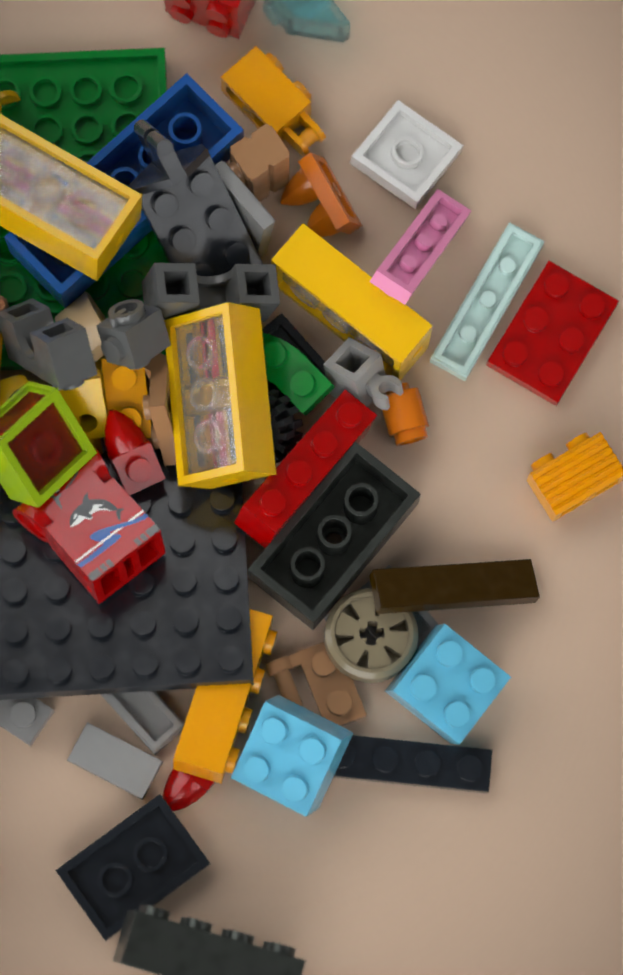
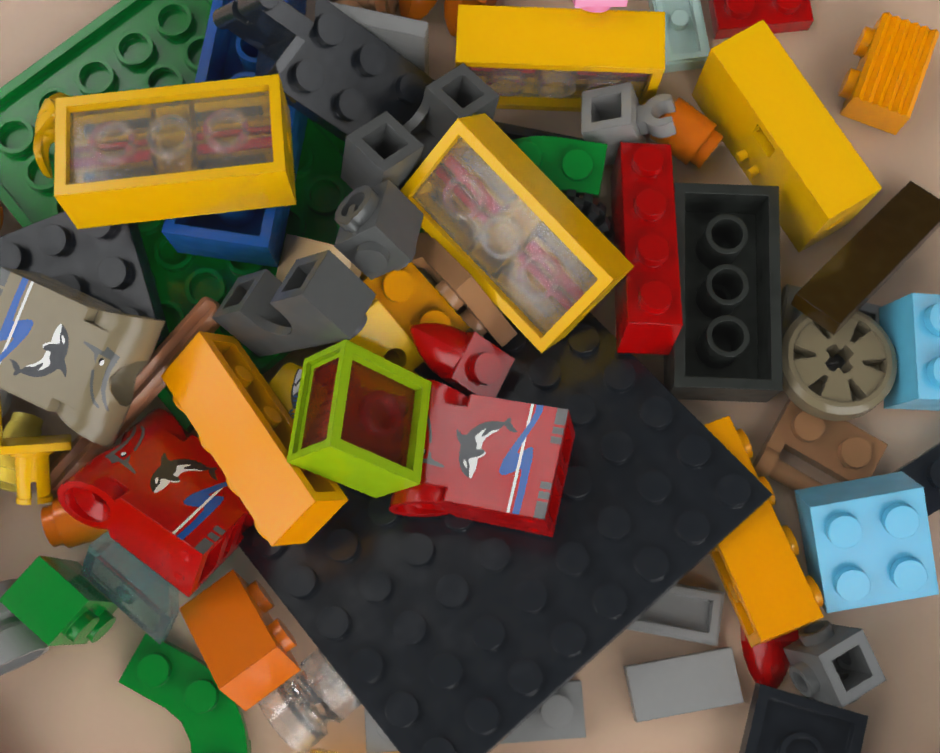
camera: 35 degrees left, 0 degrees up
(220, 825) = (833, 663): none -> dark grey brick
(456, 464) = (783, 135): none -> yellow brick

